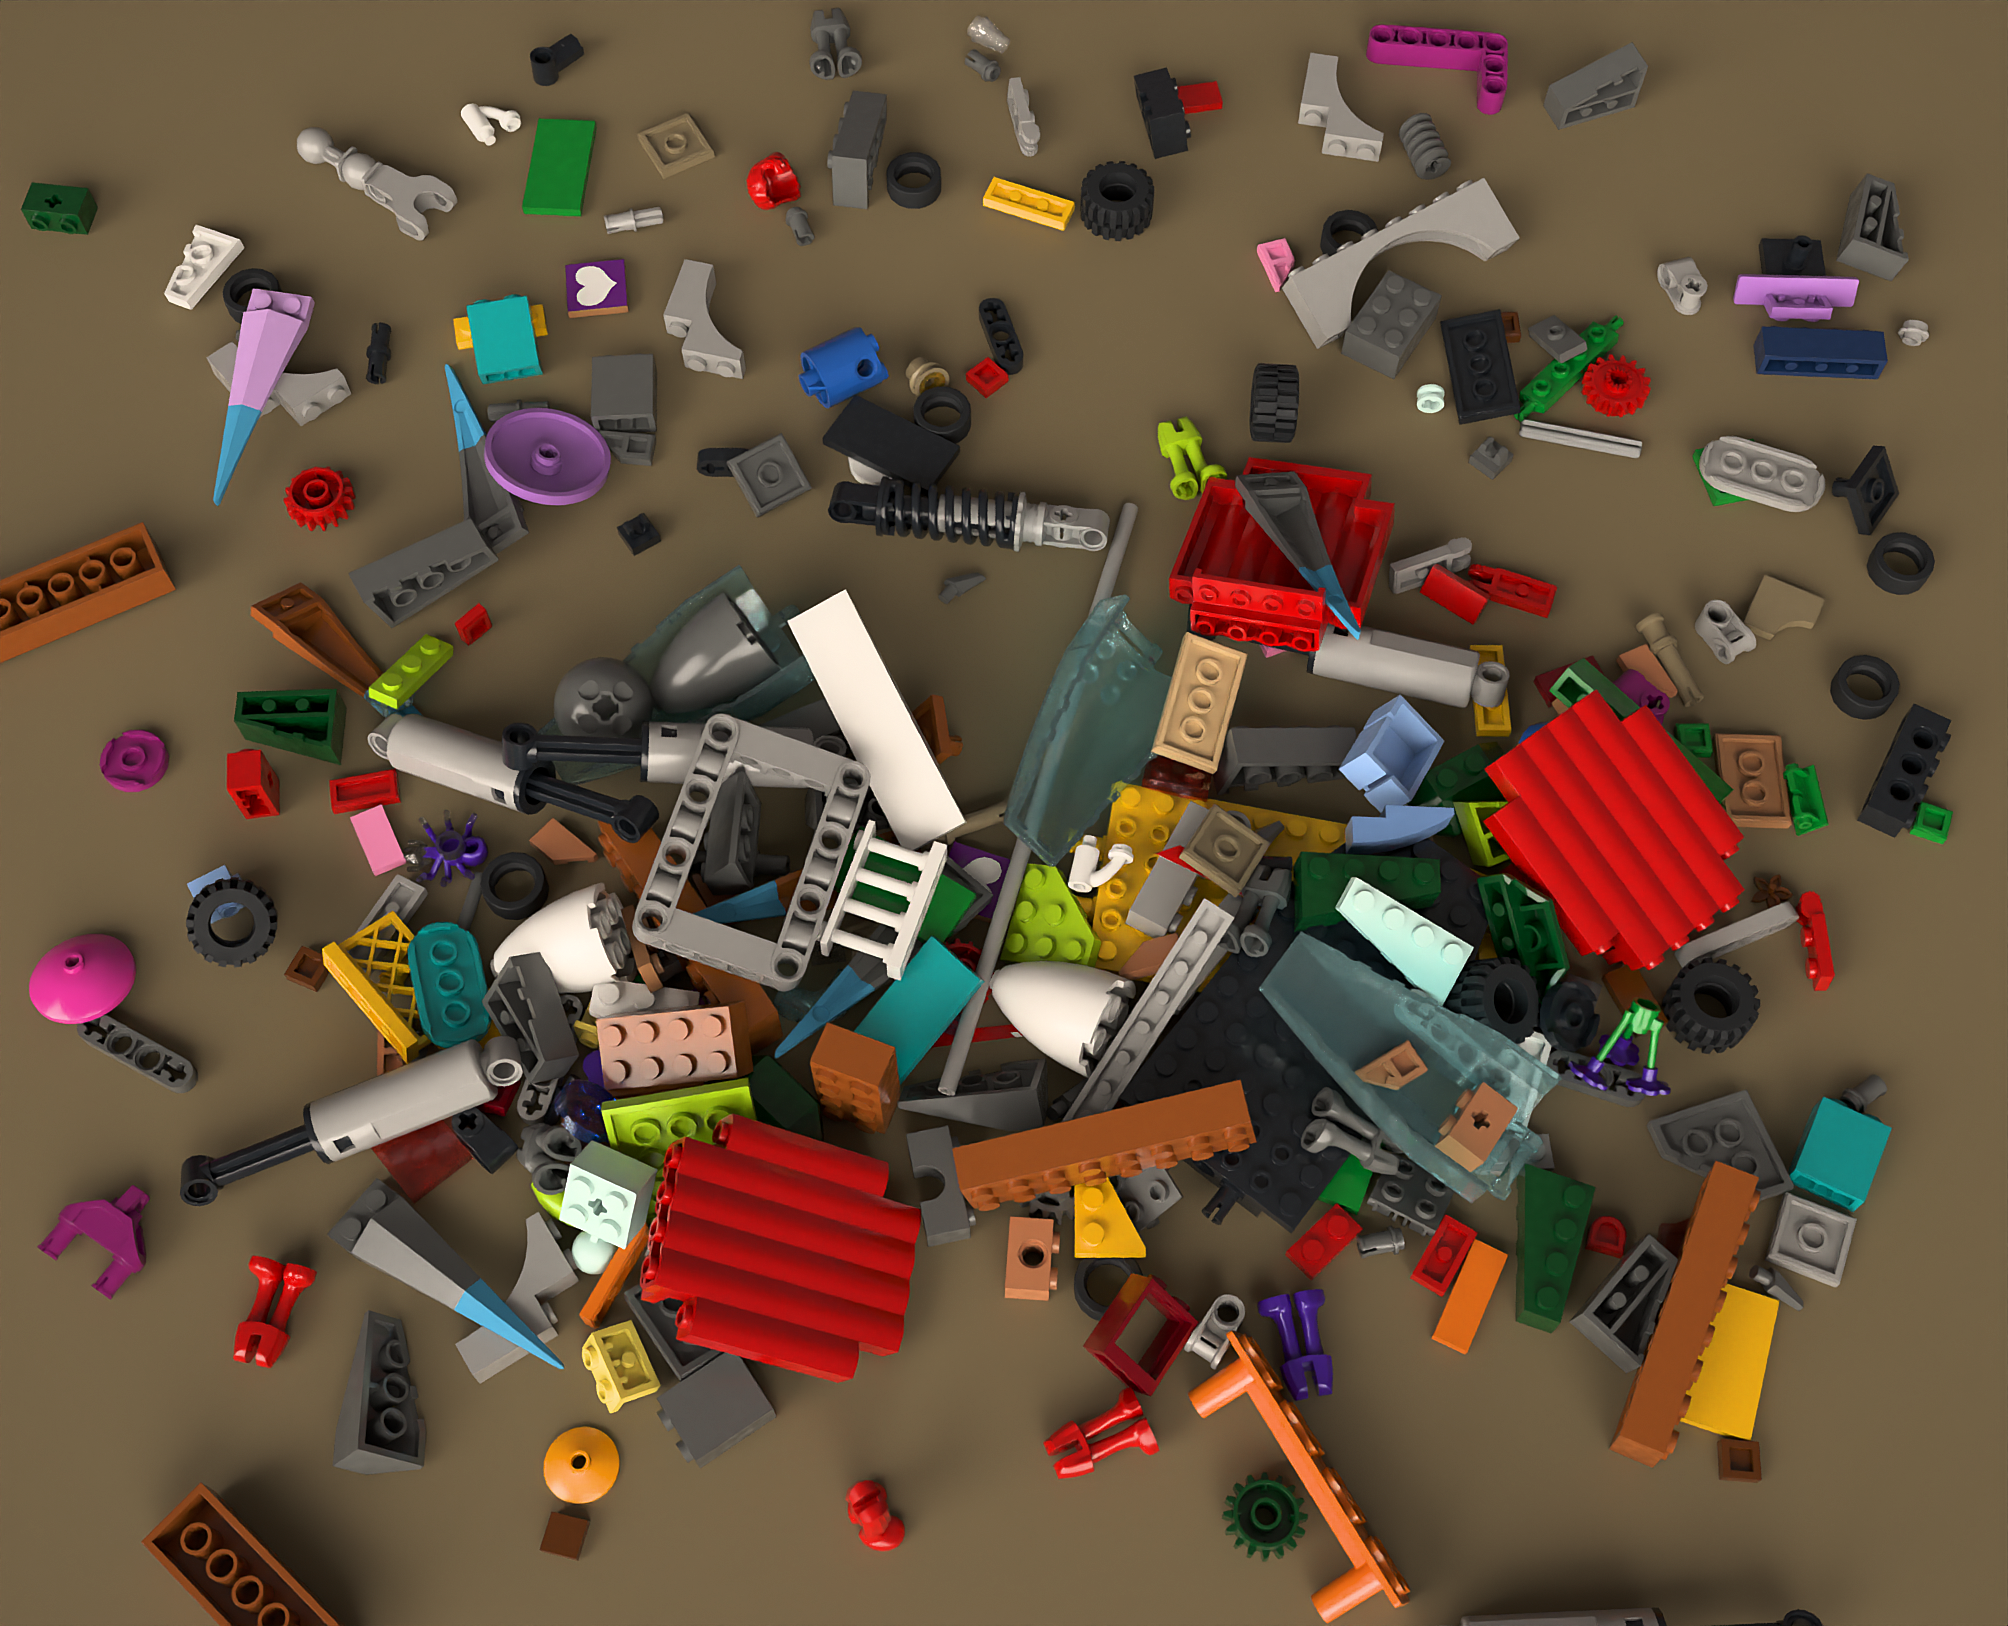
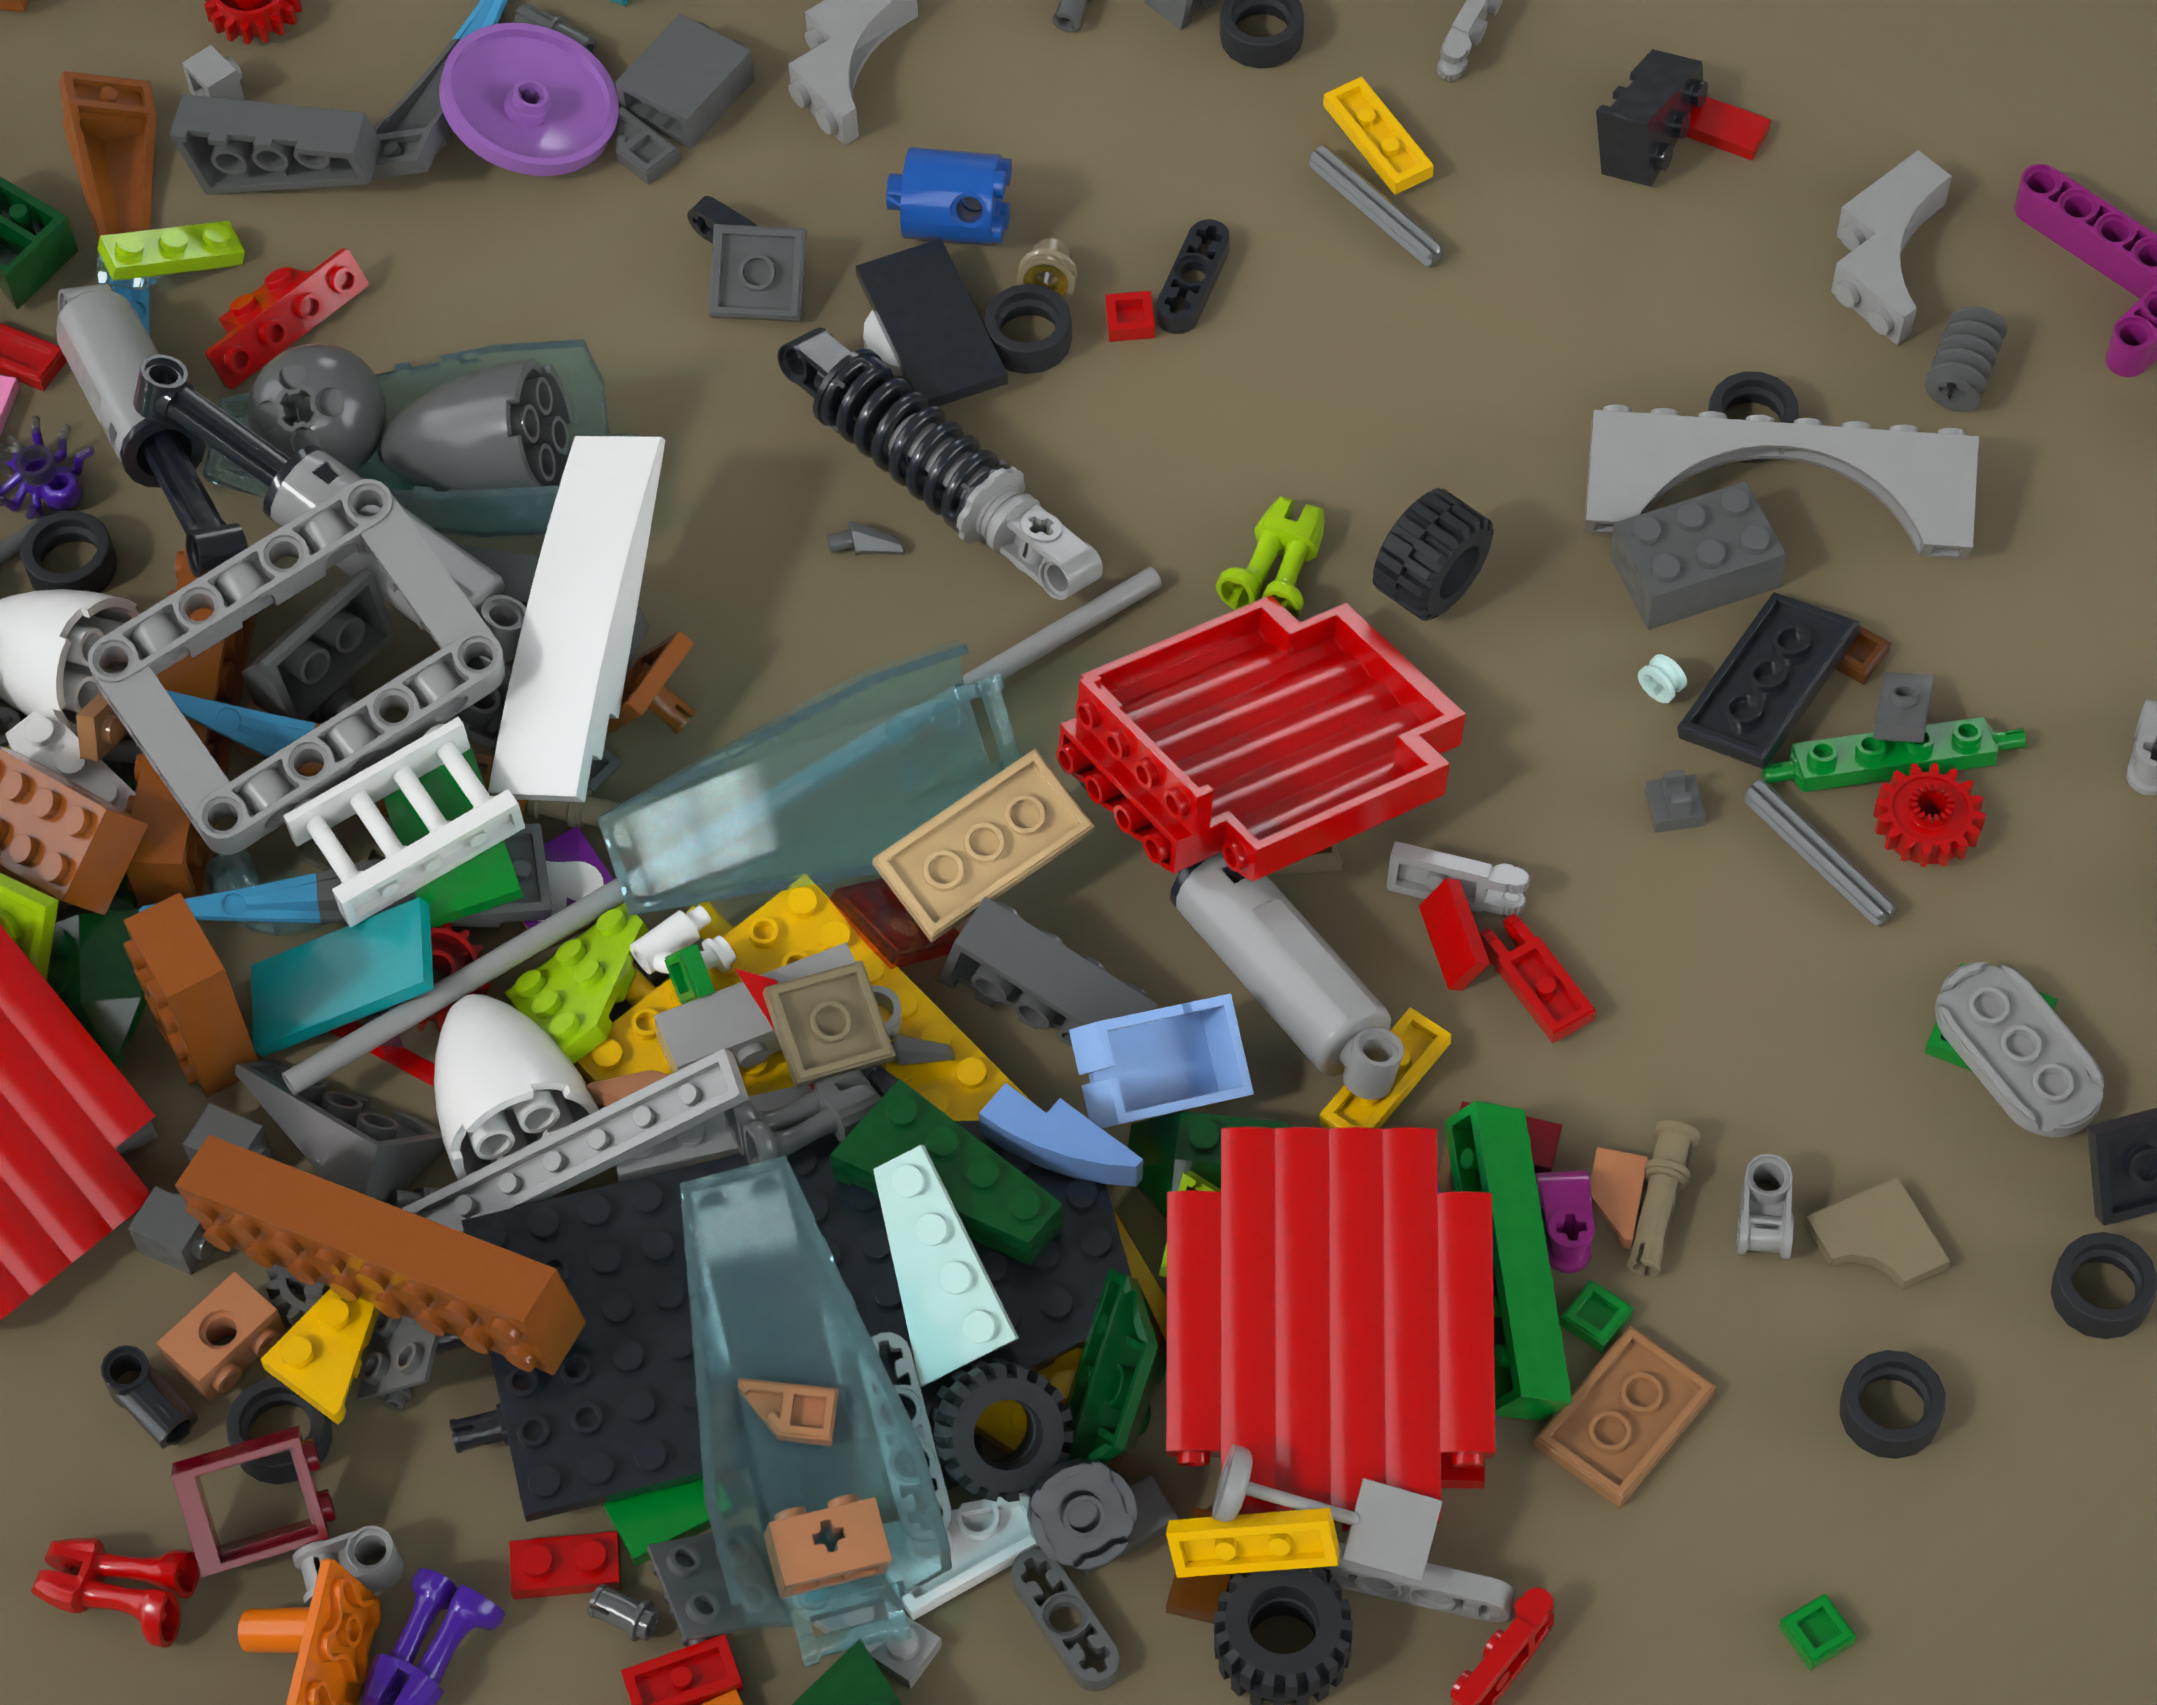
camera: 40 degrees right, 5 degrees down
(339, 557) = (213, 75): none -> light grey plate
(473, 624) = (285, 241): red tile -> none
(508, 665) = (281, 313): none -> red bracket
(561, 845) = (156, 542): nougat tile -> none
(638, 534) = (558, 253): black tile -> none
(1024, 1322) = (147, 1398): none -> black piece
(1060, 242) = (1376, 206): none -> axle
(1120, 183) = (1485, 221): black tyre -> none
(1124, 875) = (689, 974): none -> green tile
(1277, 261) = (1638, 385): bright pink tile -> none
(1285, 513) = (1297, 695): dark grey plate -> none
(1323, 1133) = (644, 1428): dark grey piece -> none
(1618, 1047) = (1122, 1602): plant -> none
(1676, 964) = (1253, 1543): none -> yellow plate
(1728, 912) = (1386, 1530): none -> light grey piece
(1770, 891) = (1514, 1563): reddish brown plant -> none
(1805, 798) = (1652, 1496): green hinge -> none
(1881, 808) = (1904, 1496): black brick -> none

